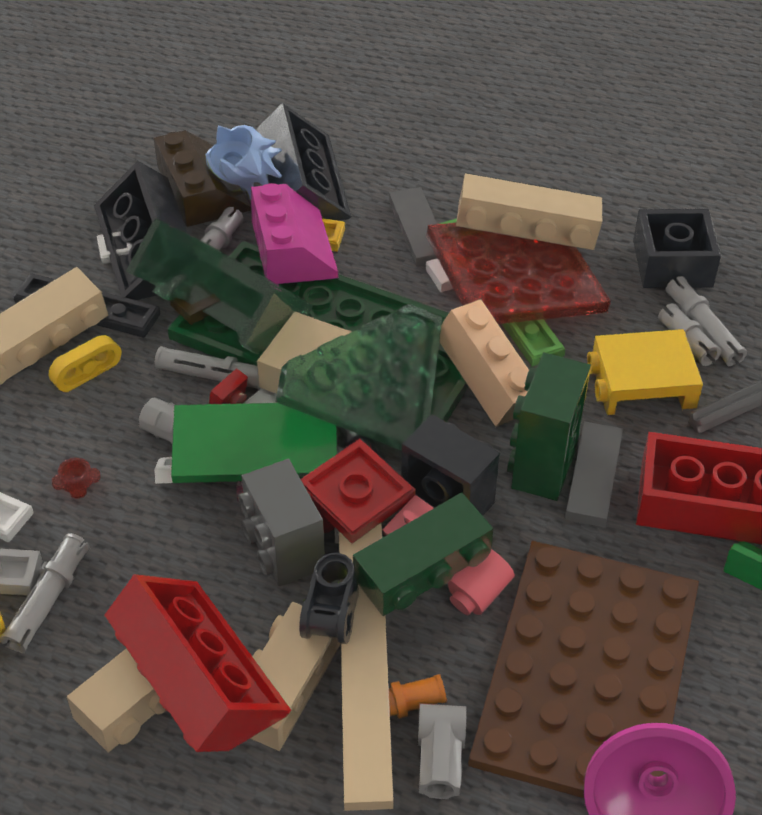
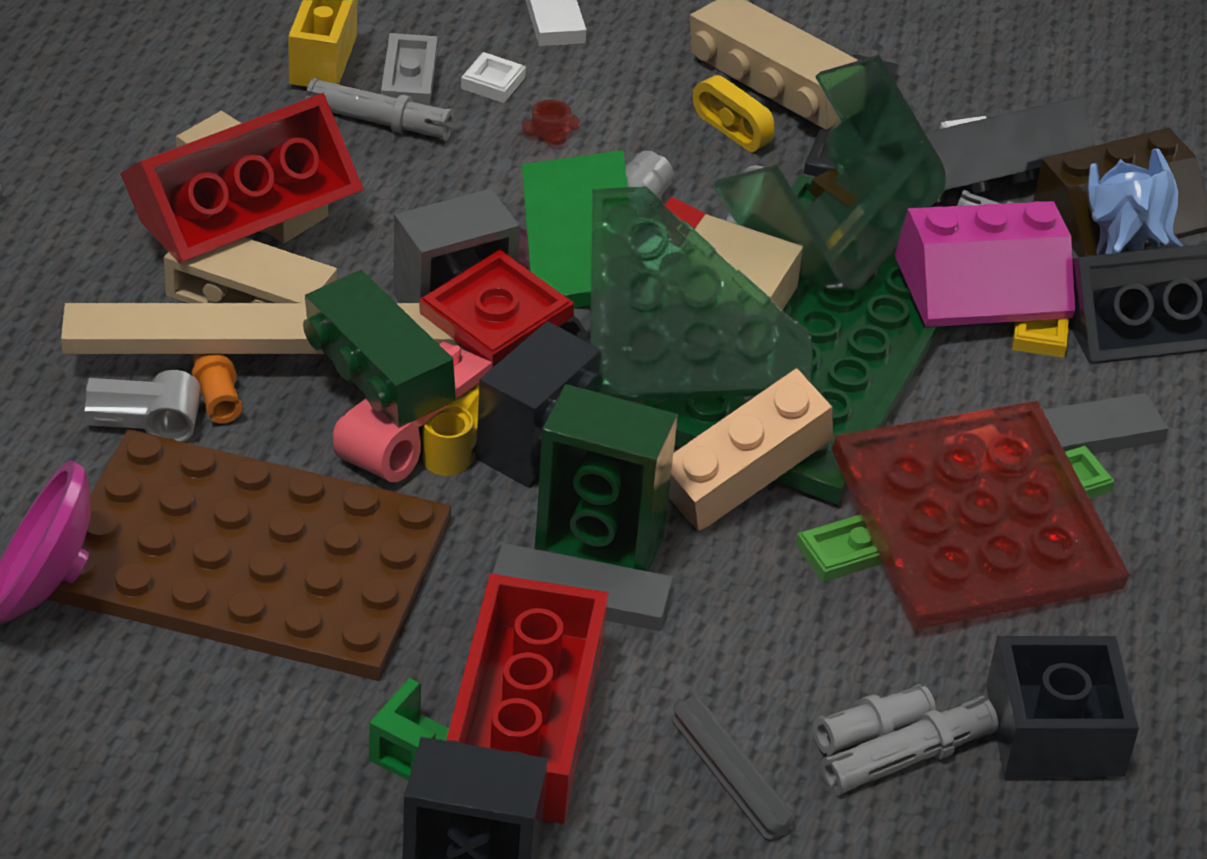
camera: 85 degrees right, 5 degrees down
(329, 606) = (309, 270): black piece -> none
(529, 211) = (1087, 513): tan brick -> none
(644, 368) = (777, 649): yellow panel -> none

